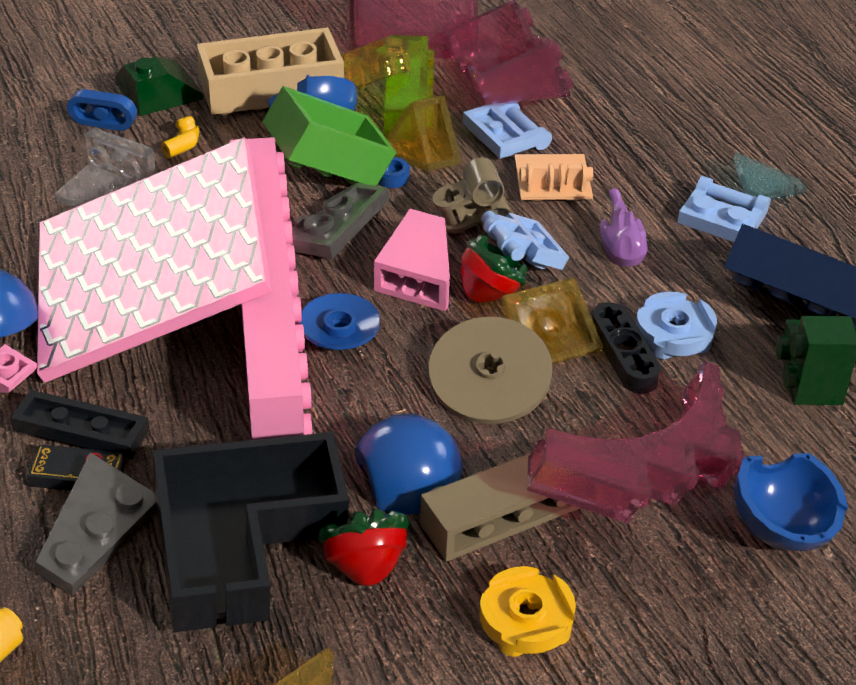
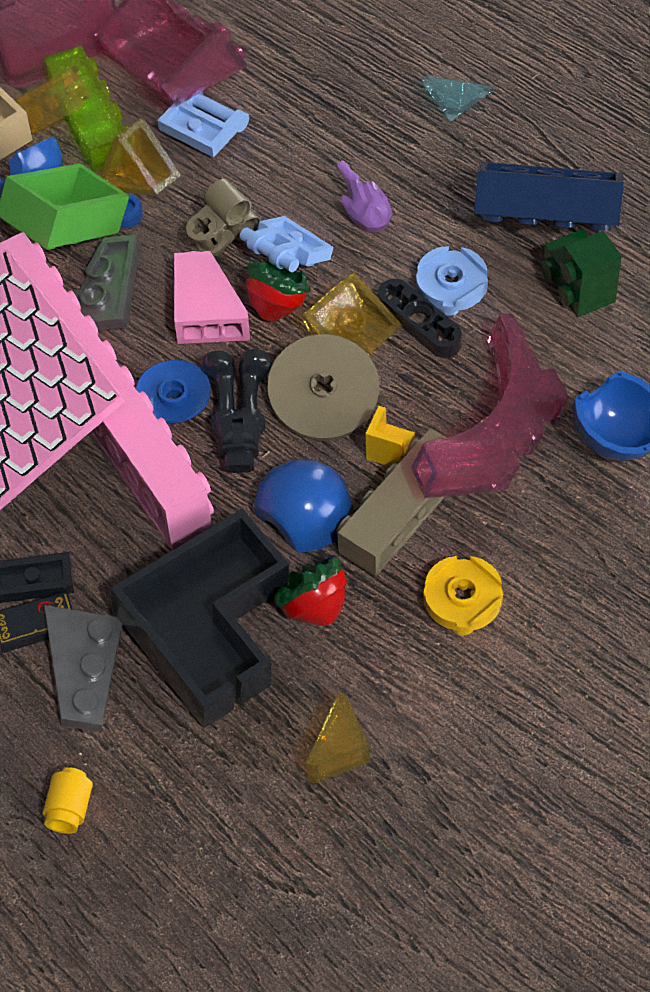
camera: 20 degrees left, 15 degrees up
(384, 376) = (240, 430): none -> black piece
(520, 429) = (386, 442): none -> yellow panel
(553, 177) = (272, 159): light nougat hinge -> none
(718, 217) = (435, 149): light blue plate -> none

